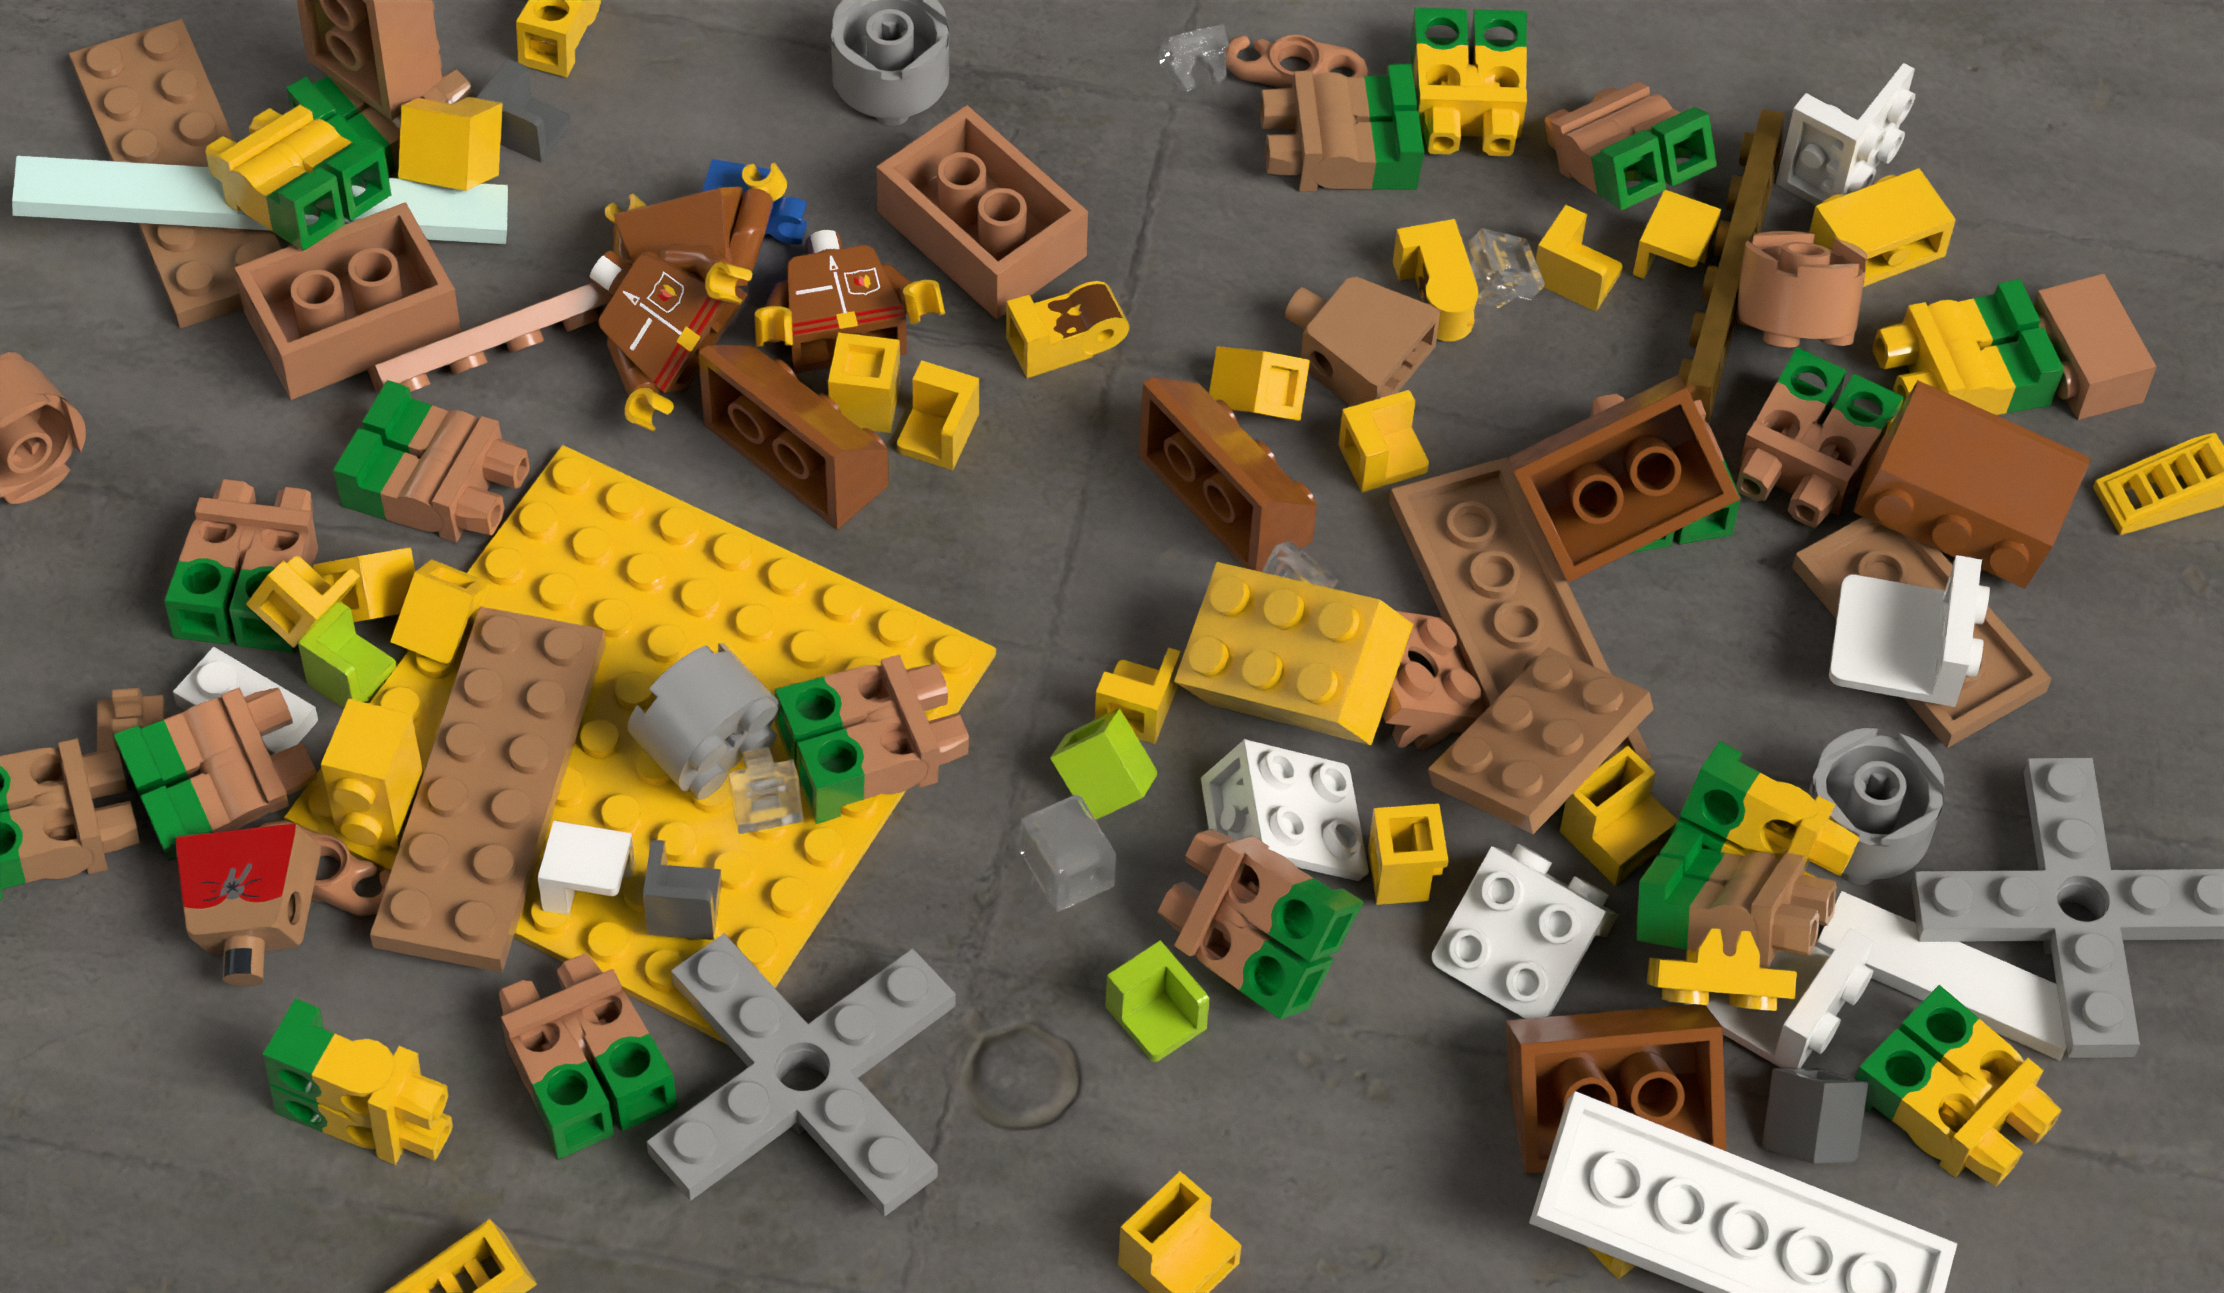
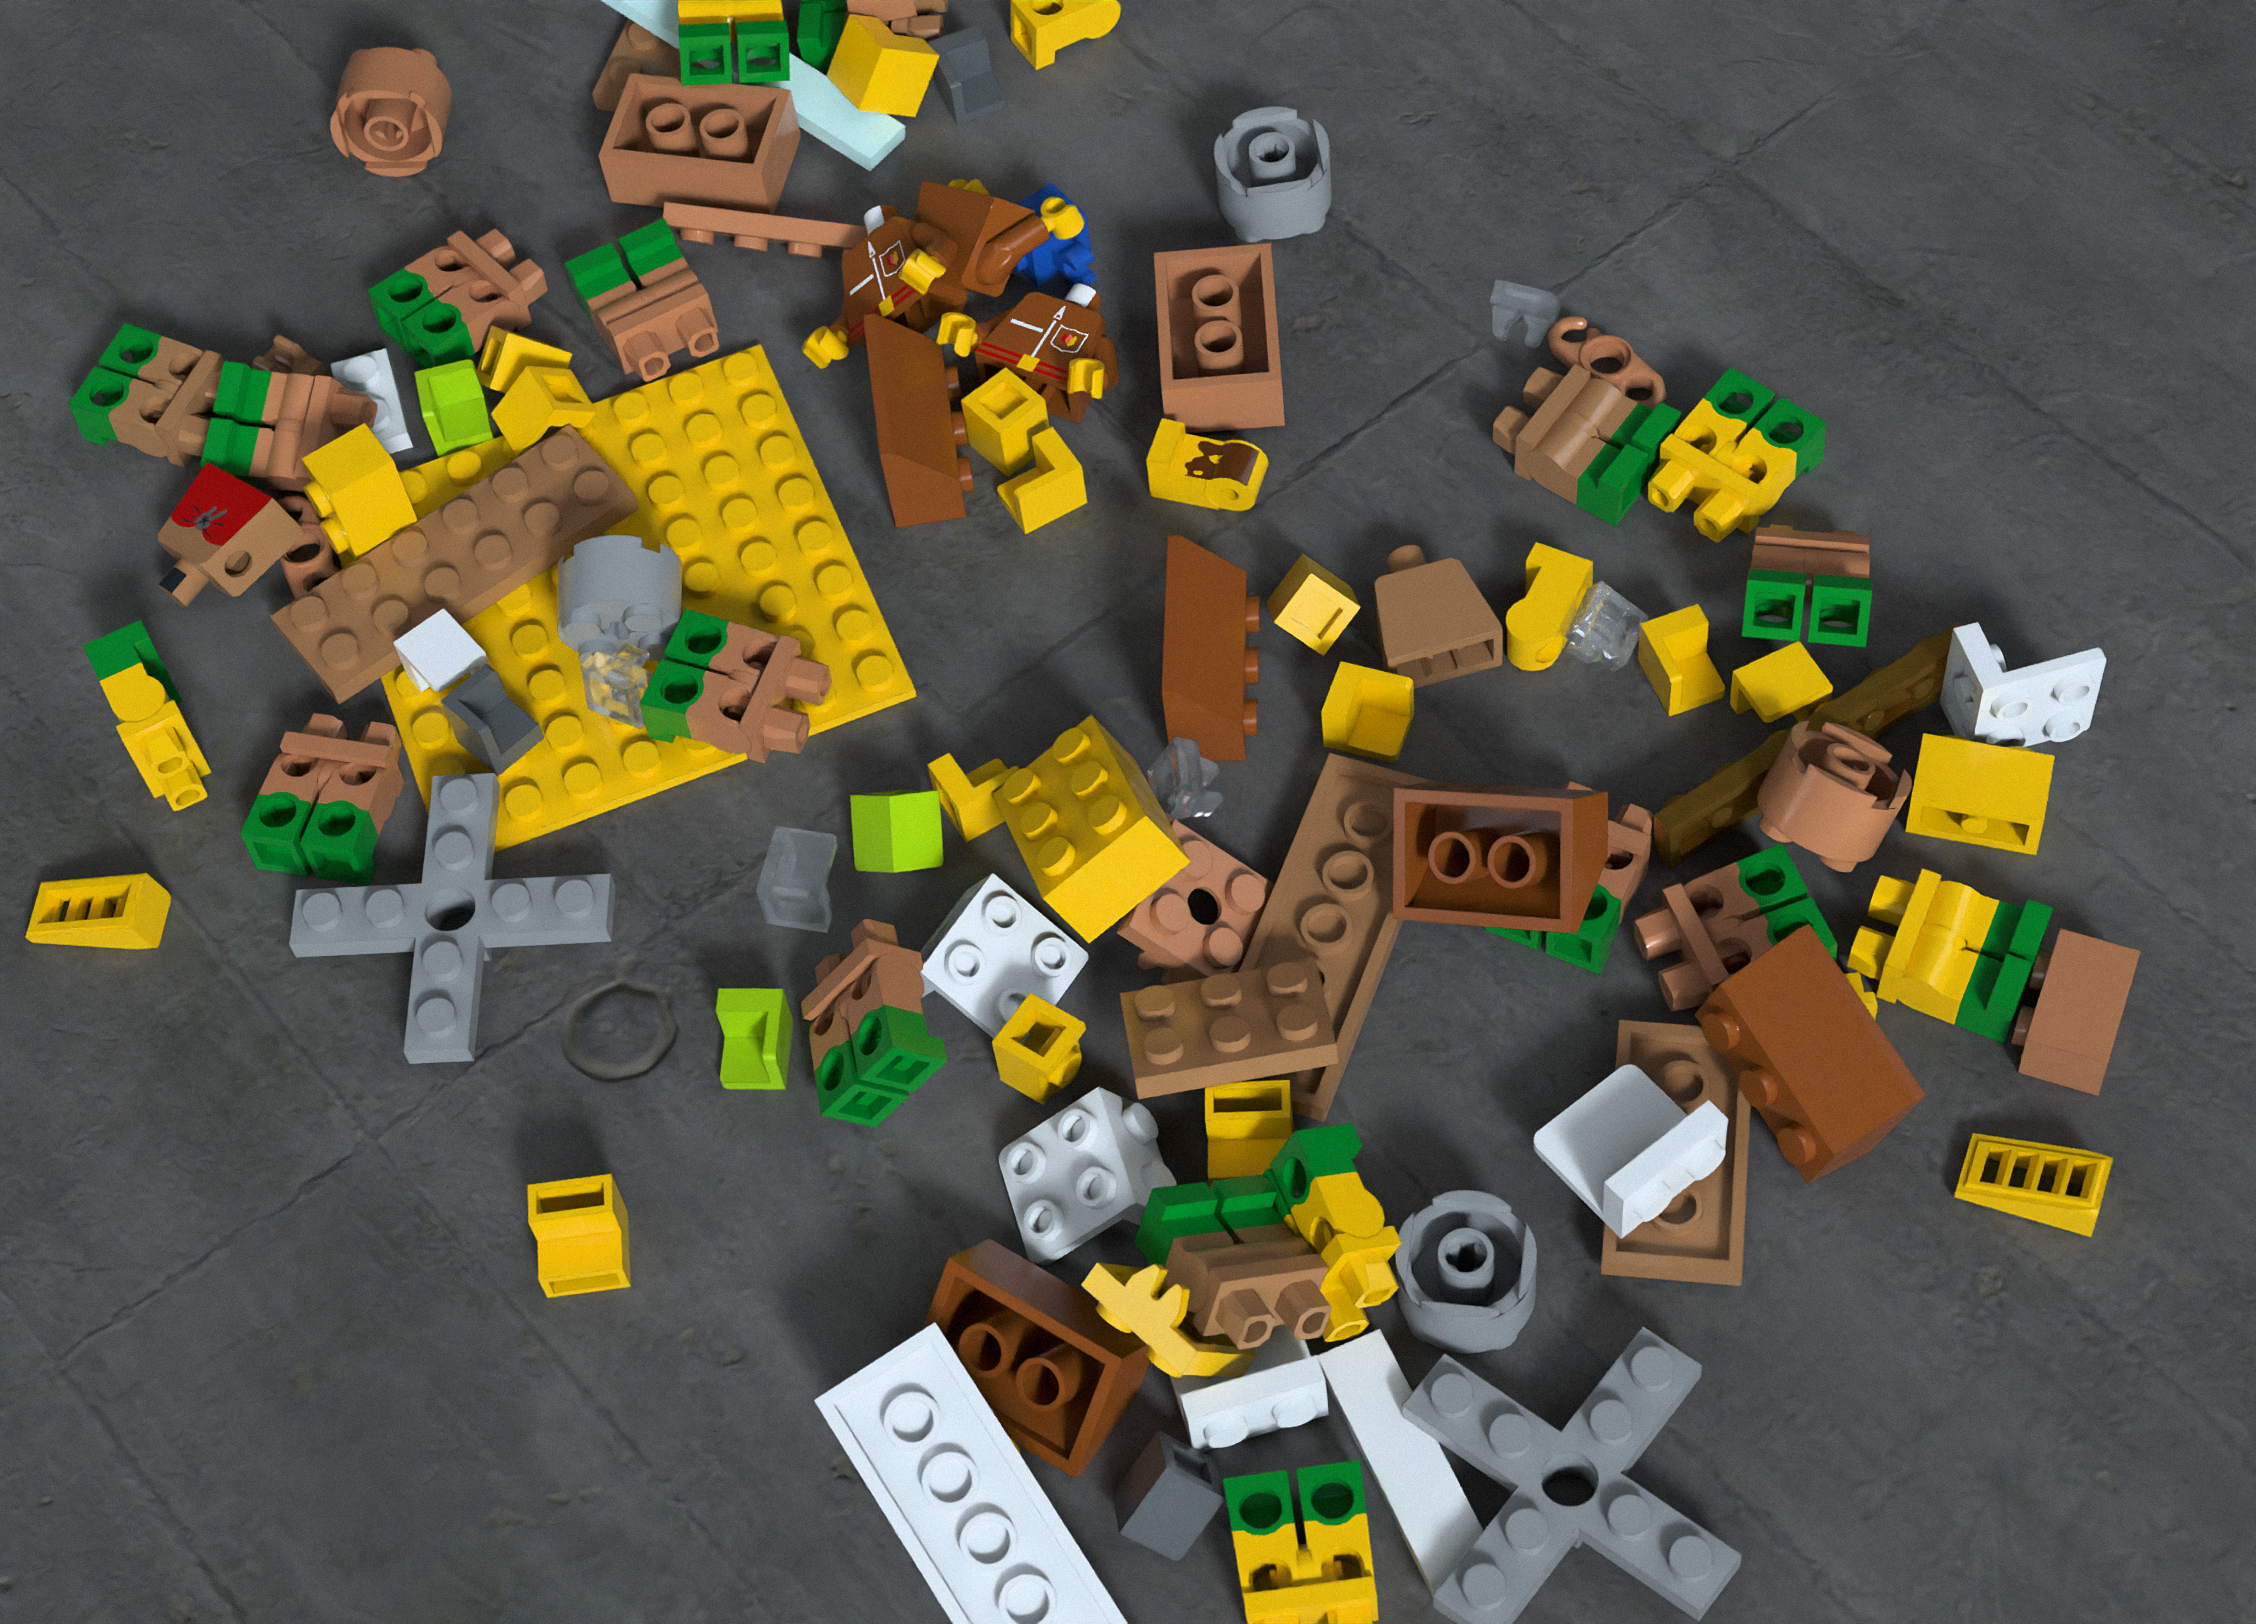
camera: 50 degrees right, 0 degrees up
(297, 598) = (443, 336): yellow panel -> none

